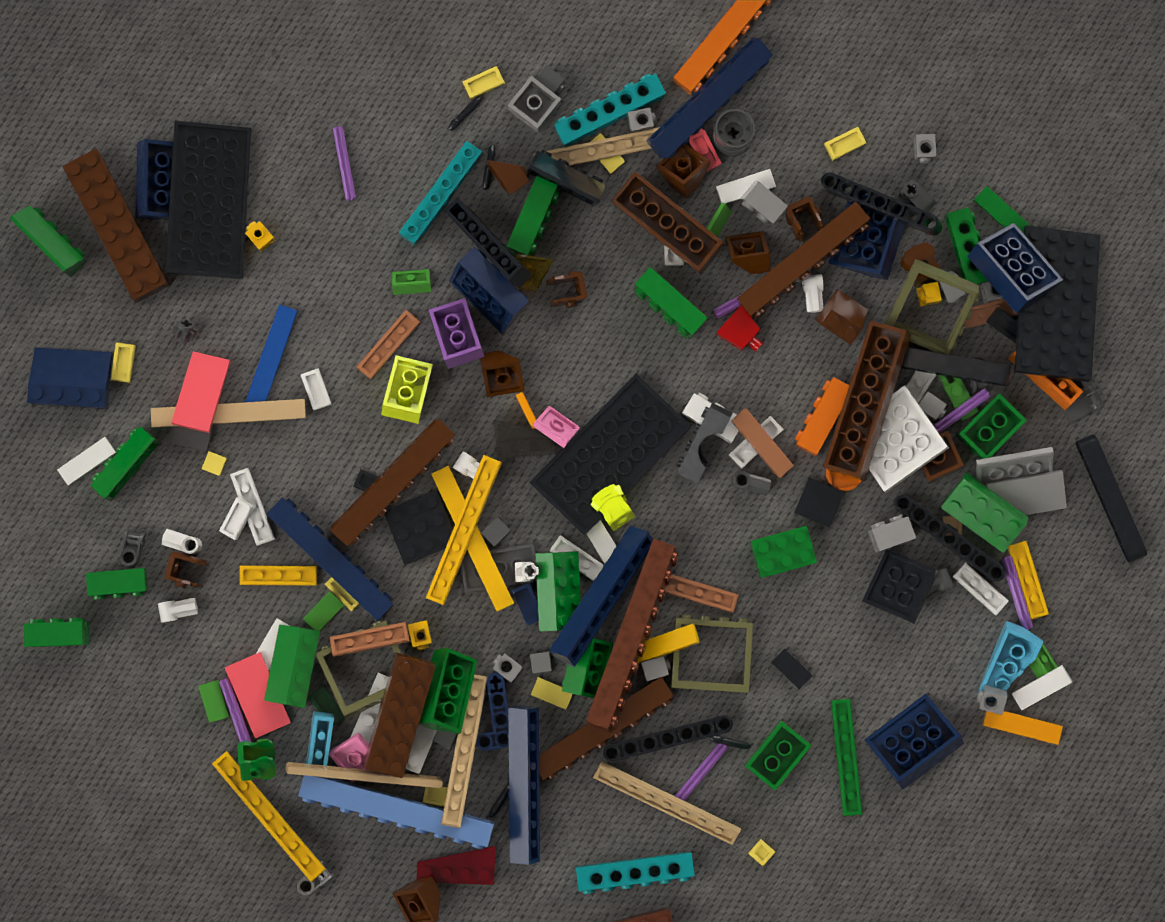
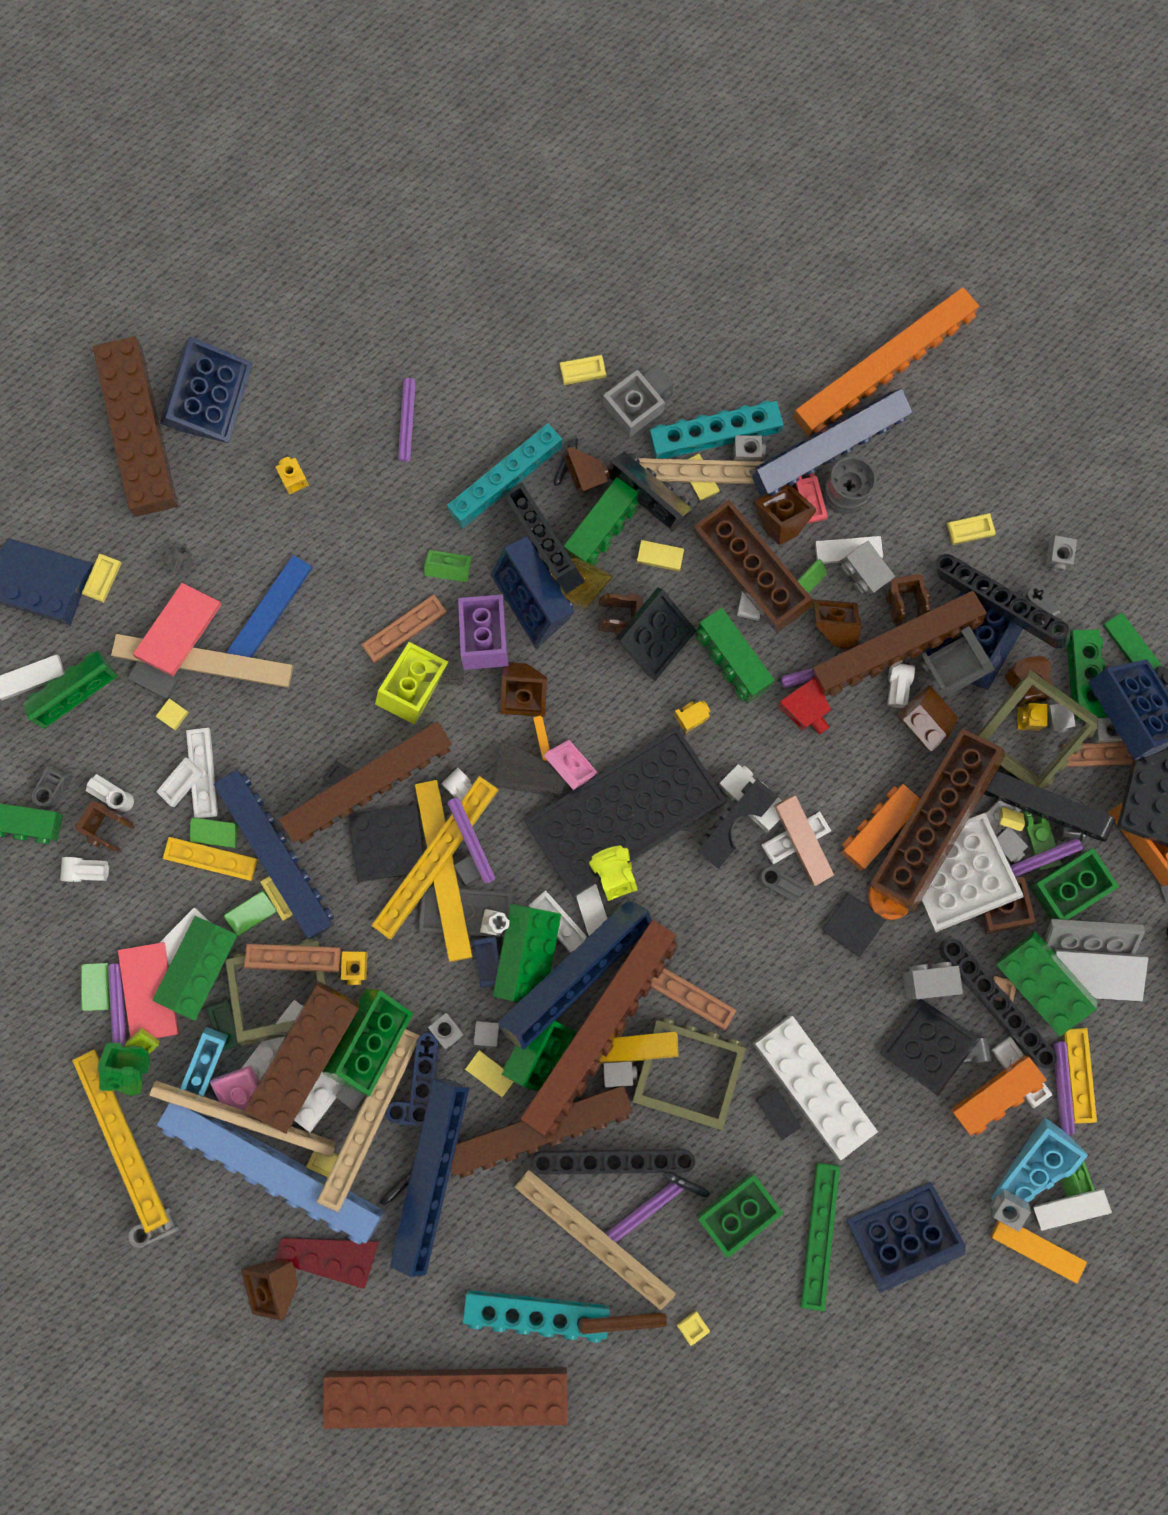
camera: 15 degrees right, 5 degrees down
(49, 240) = (55, 423): green slope -> none
(208, 200) = (243, 422): black plate -> none
(265, 733) = (143, 1039): none -> lime tile
(276, 553) = (213, 832): none -> bright green slope
(316, 389) = (309, 659): white tile -> none
(464, 113) = (540, 405): black piece -> none
(490, 509) = (471, 840): none -> medium lavender axle
(588, 230) = (660, 555): none -> light yellow tile
(600, 300) = (656, 634): none -> black plate
(647, 360) = (692, 715): none -> yellow brick
(704, 860) = (622, 1323): none -> reddish brown axle
(783, 552) = (799, 972): green brick -> none
(815, 641) = (815, 1087): none -> white brick
(856, 265) = (957, 663): none -> dark grey panel
(928, 384) = (1011, 819): none -> light yellow tile
(964, 611) = (998, 1095): none -> orange brick
(1003, 323) = (1112, 772): black tile -> none

